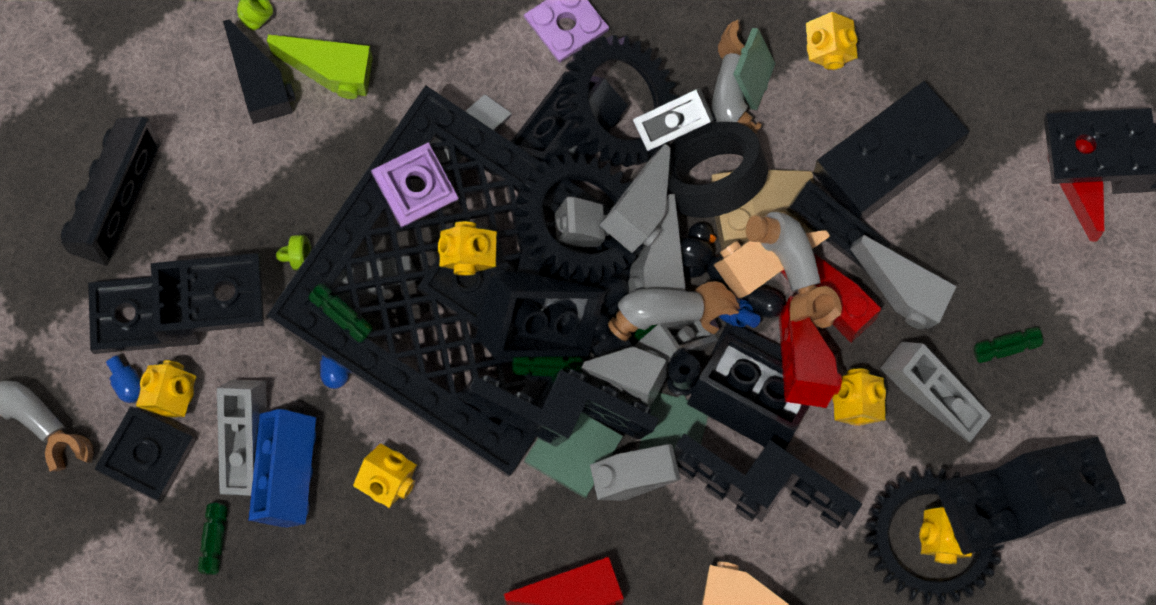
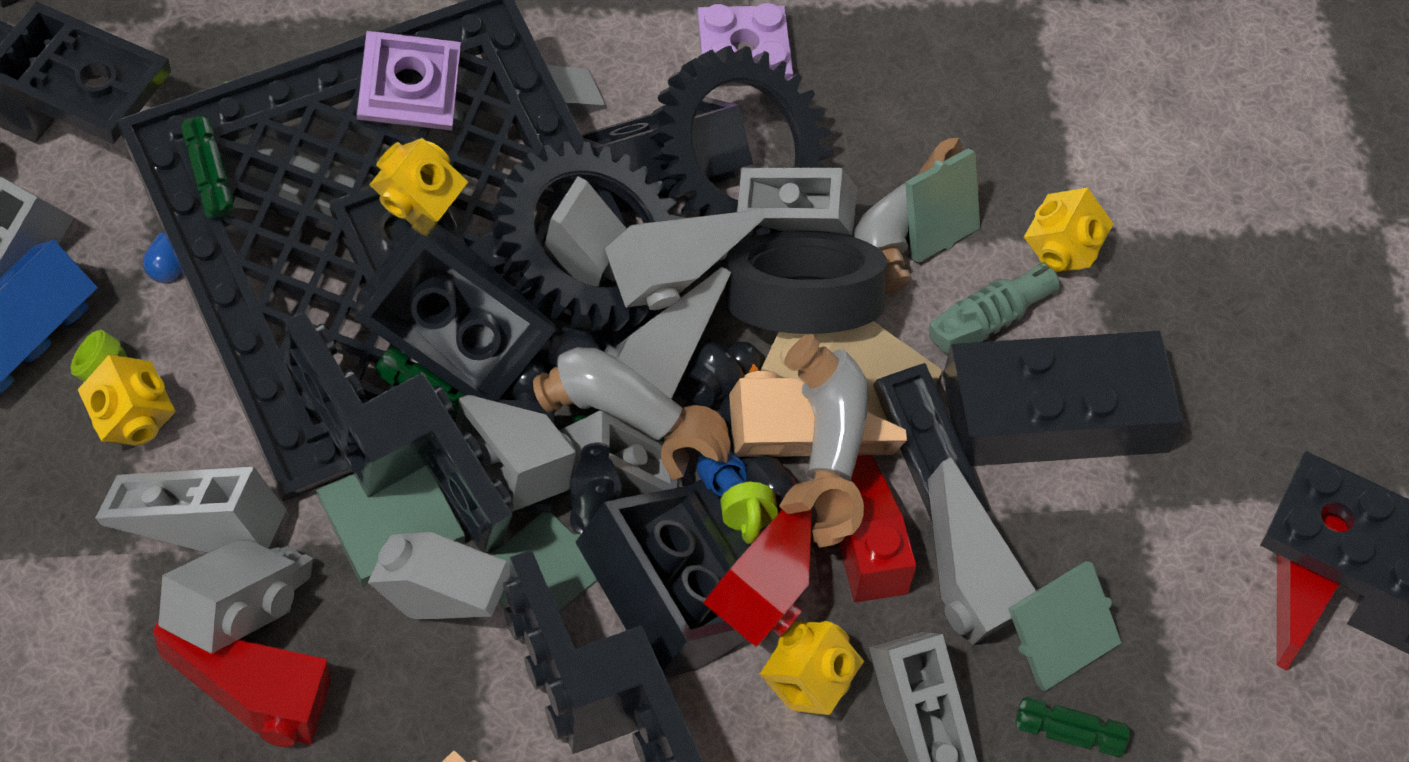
camera: 25 degrees right, 15 degrees down
(345, 458) = (93, 353): none -> lime tile
(467, 514) = (194, 507): none -> light grey slope
(532, 551) = (231, 592): none -> light grey hinge
(769, 328) = (749, 508): none -> lime tile
(817, 117) = (992, 308): none -> sand green hinge
(973, 291) = (1065, 625): none -> sand green piece

